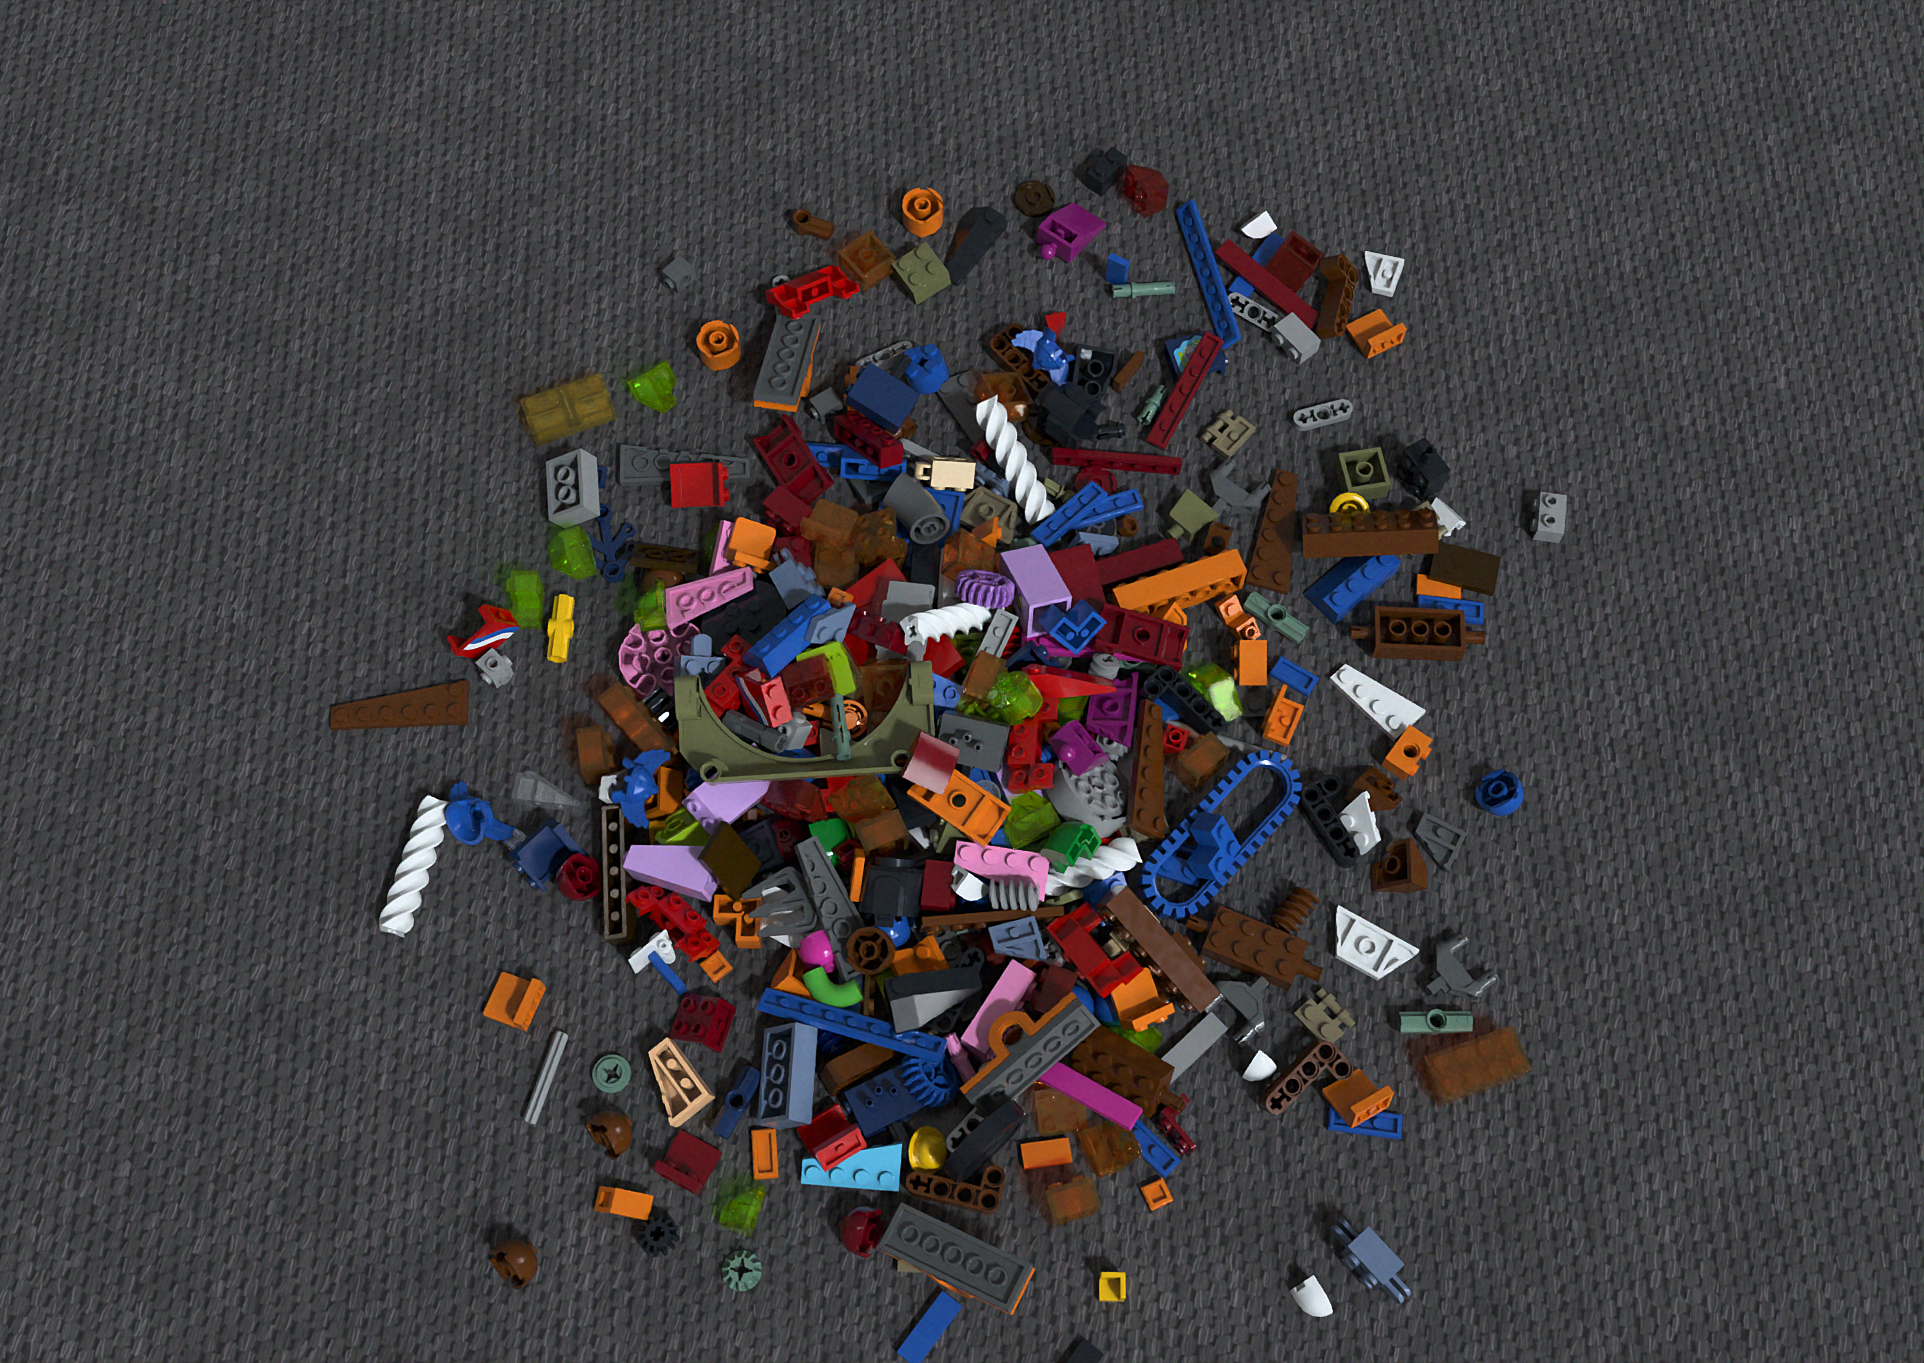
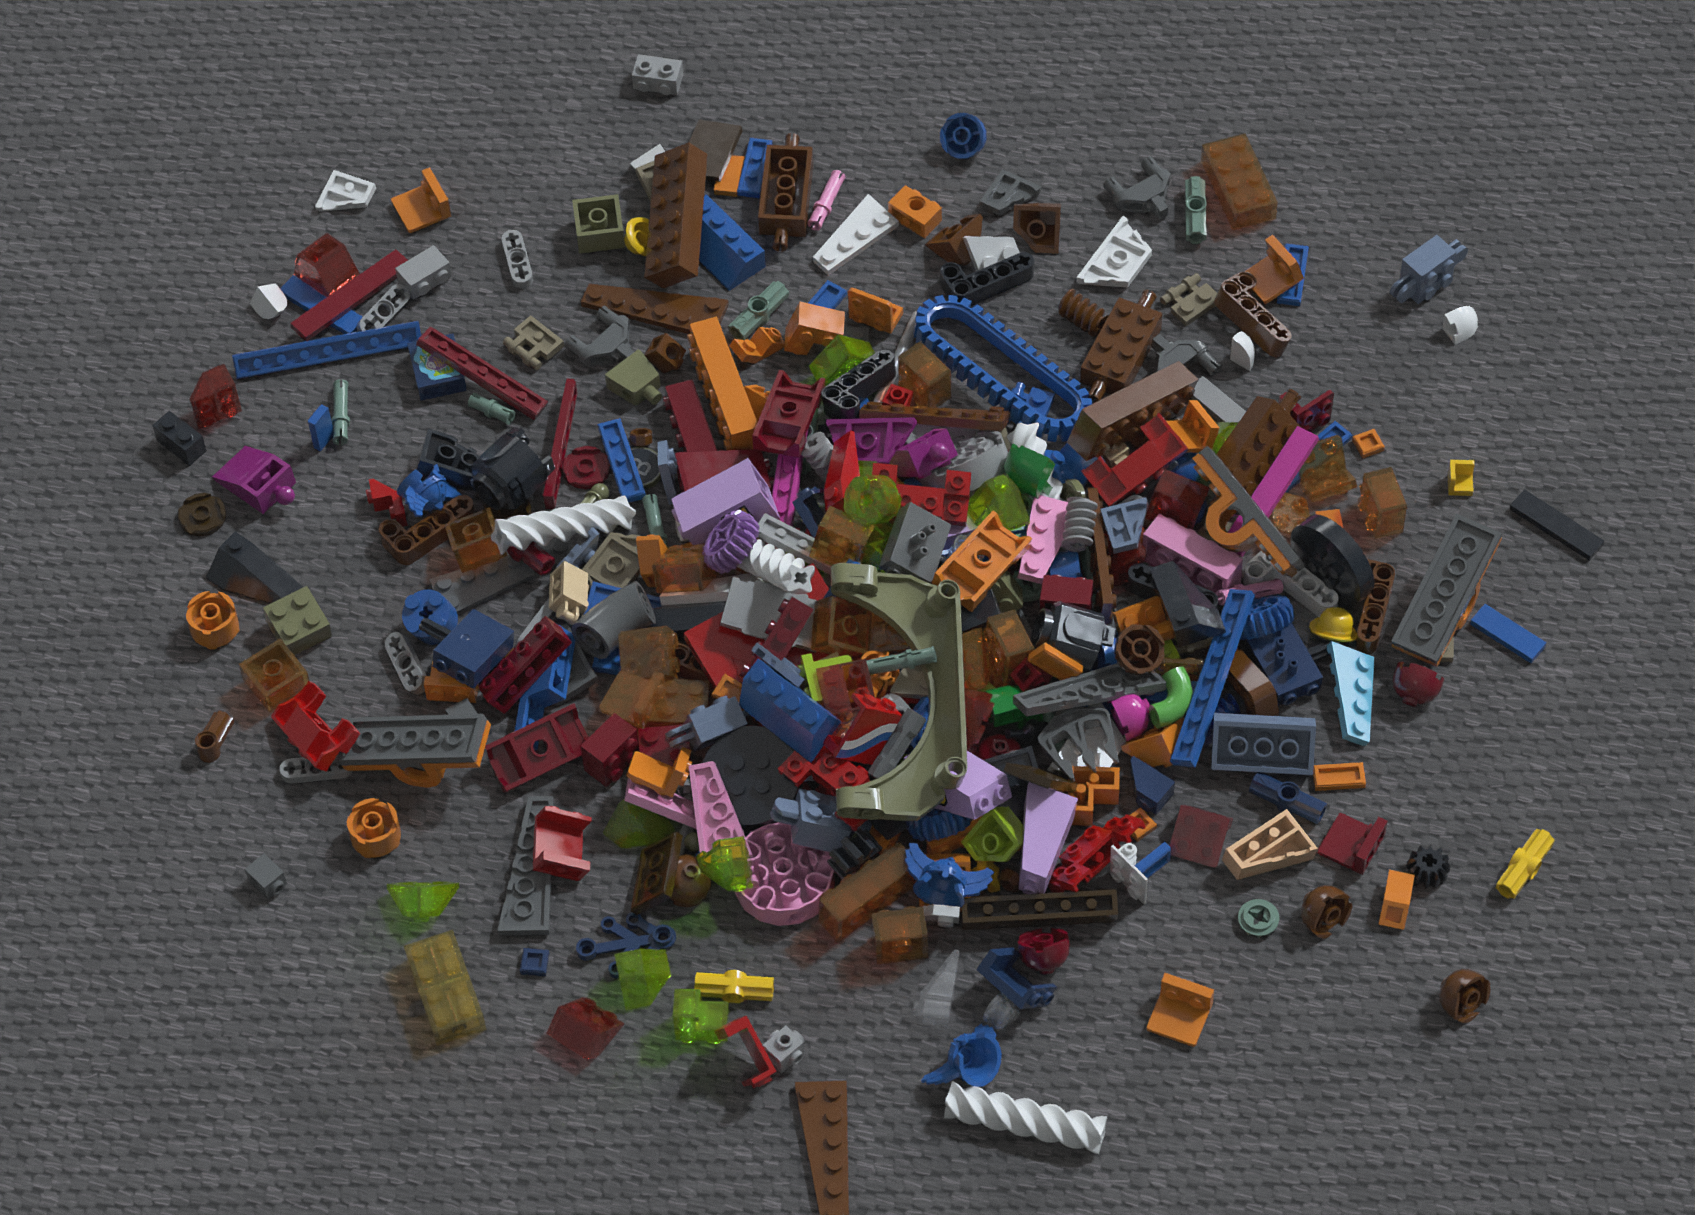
camera: 85 degrees left, 10 degrees down
(526, 516) = (584, 1027): none -> clear red slope
(545, 1077) = (1263, 981): light grey axle -> none
(572, 488) = (558, 971): light grey brick -> none
(659, 1332) = (1525, 863): none -> yellow piece
(743, 1211) = (1402, 784): clear neon green slope -> none
(749, 1279) = (1448, 797): sand green gear -> none
(751, 973) = (1150, 786): none -> dark blue slope
(831, 1137) = (1330, 703): red panel -> none
(930, 762) = (951, 563): dark red slope -> none
(967, 885) = (1065, 564): white brick -> none
(1068, 514) = (629, 483): blue tile -> none
(1074, 628) = (777, 463): blue brick -> none
(1128, 371) = (443, 424): reddish brown tile -> none
(1215, 846) = (1019, 366): blue brick -> none
(1338, 296) = (377, 231): reddish brown beam -> none
(1415, 673) = (823, 207): none -> bright pink pin
(1422, 469) = (598, 168): black brick -> none

